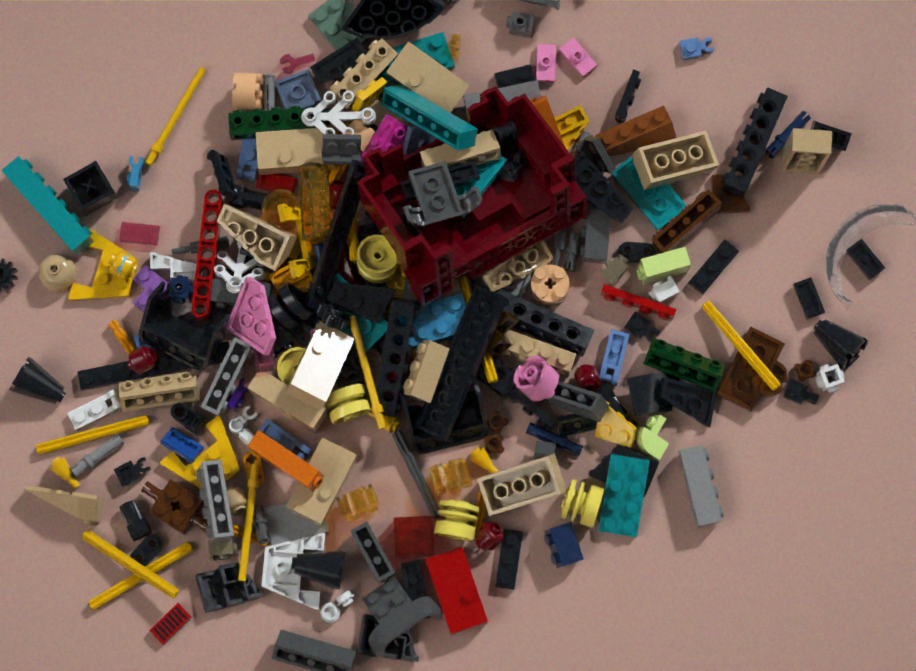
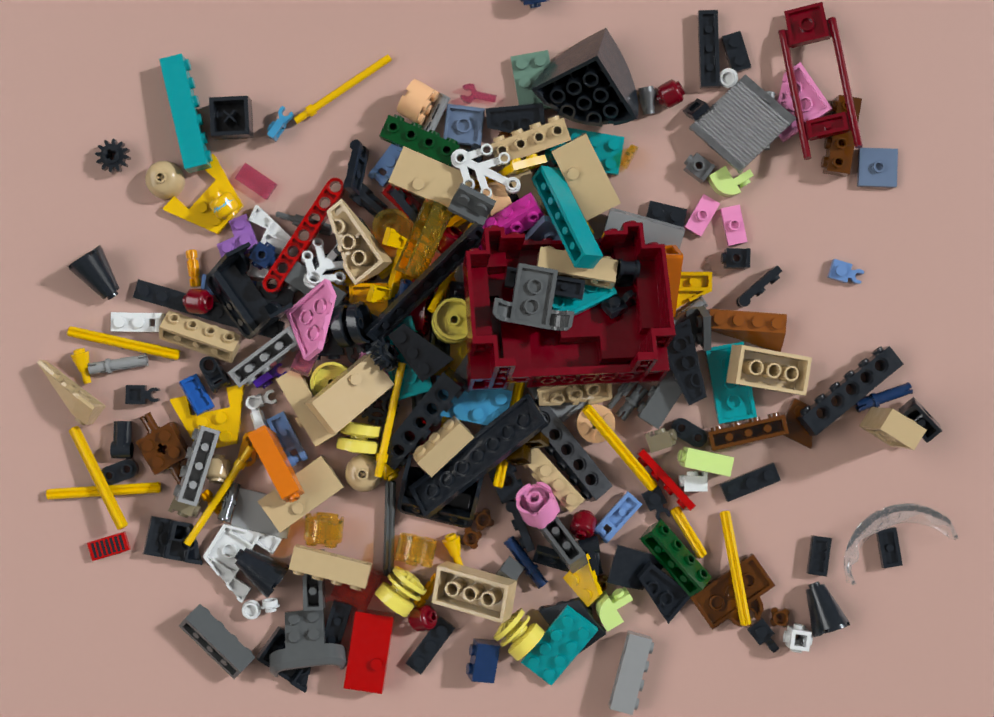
camera: 25 degrees right, 10 degrees up
(274, 179) = (399, 196): none -> black plate
(371, 445) = (356, 465): none -> tan cylinder
(382, 526) = (330, 566): none -> tan brick
(553, 27) = (725, 185): none -> yellowish green brick
(582, 292) = (619, 447): none -> yellow axle
(595, 89) = (744, 258): none -> black brick
(683, 338) = (688, 532): none -> yellow axle

